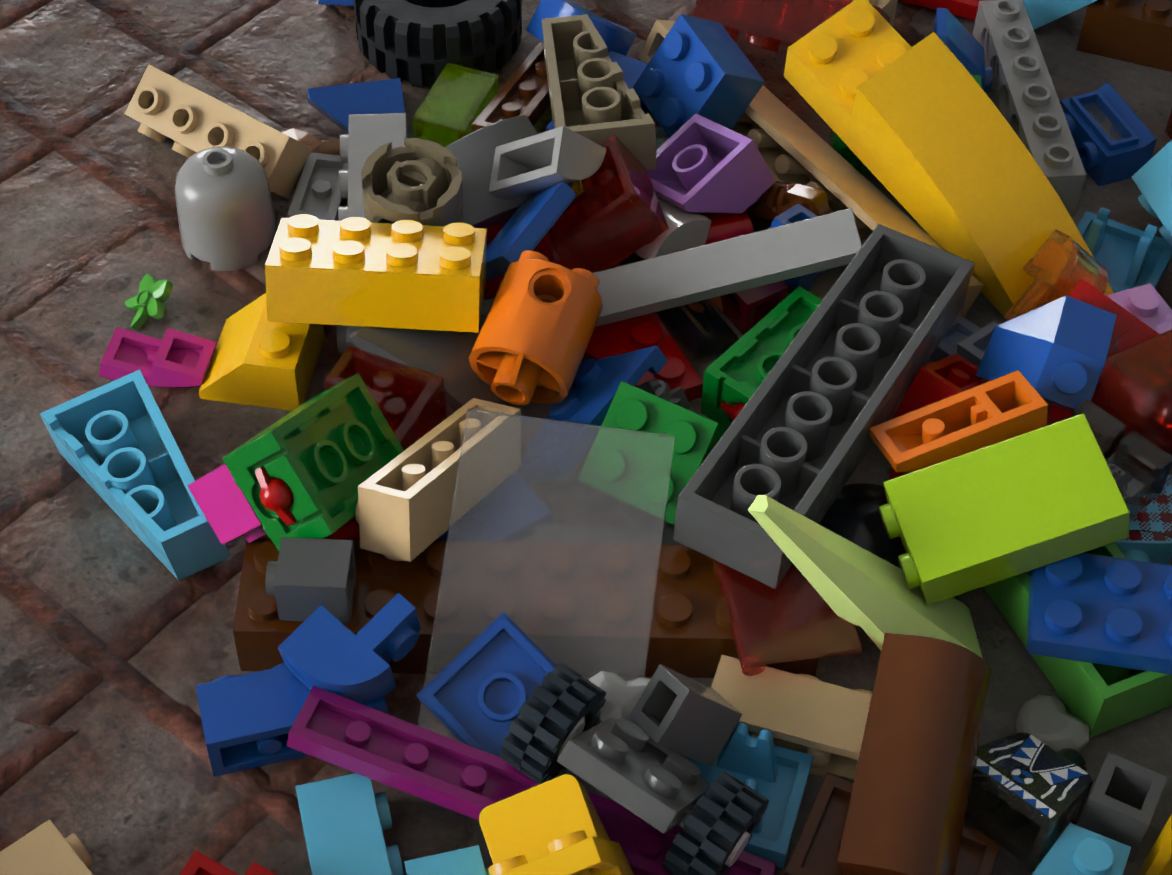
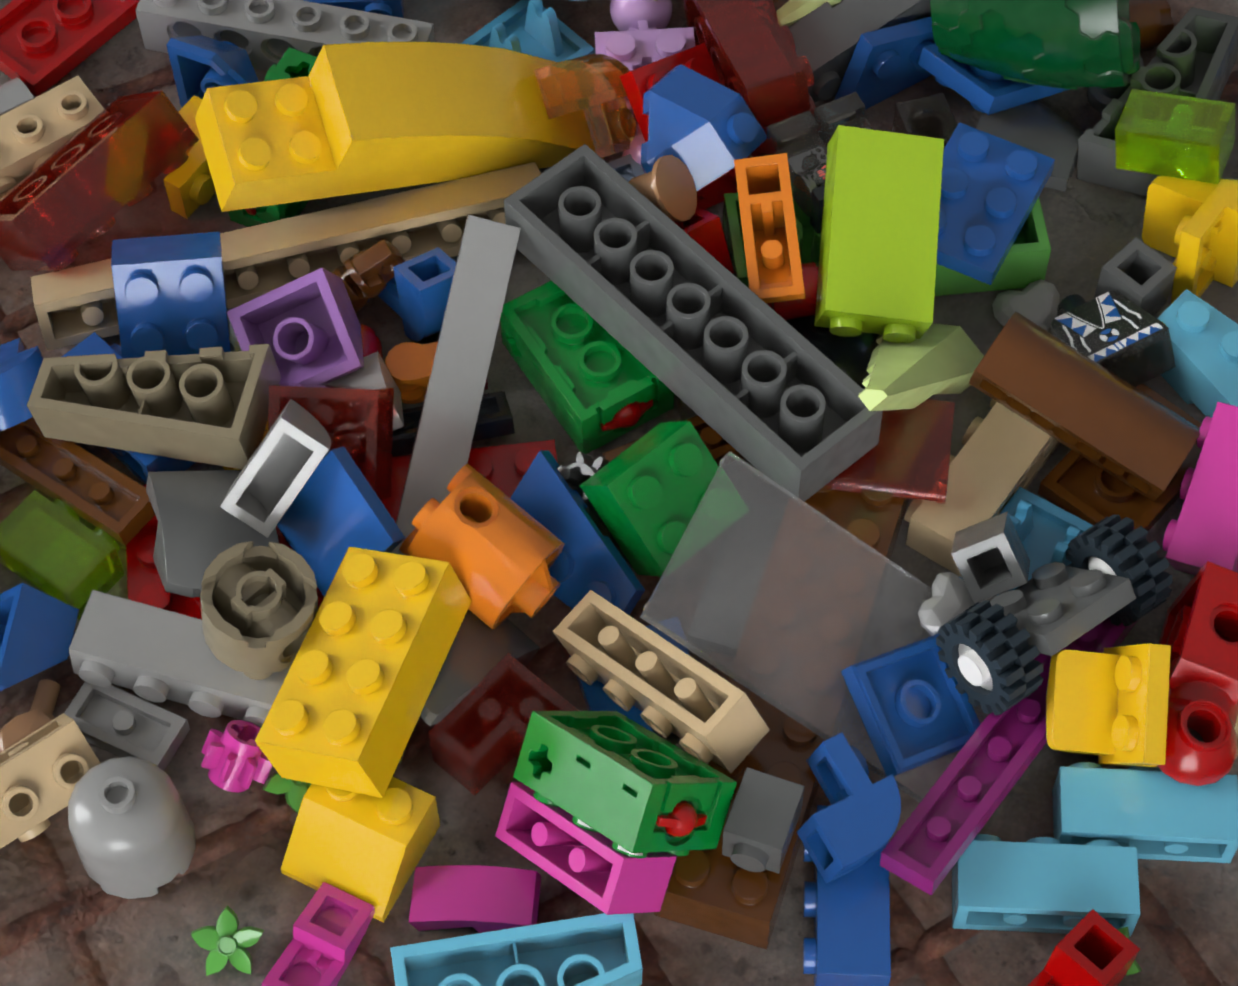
camera: 70 degrees left, 10 degrees up
(222, 429) = (474, 897): none -> dark pink slope
(972, 348) = (669, 188): none -> medium nougat piece

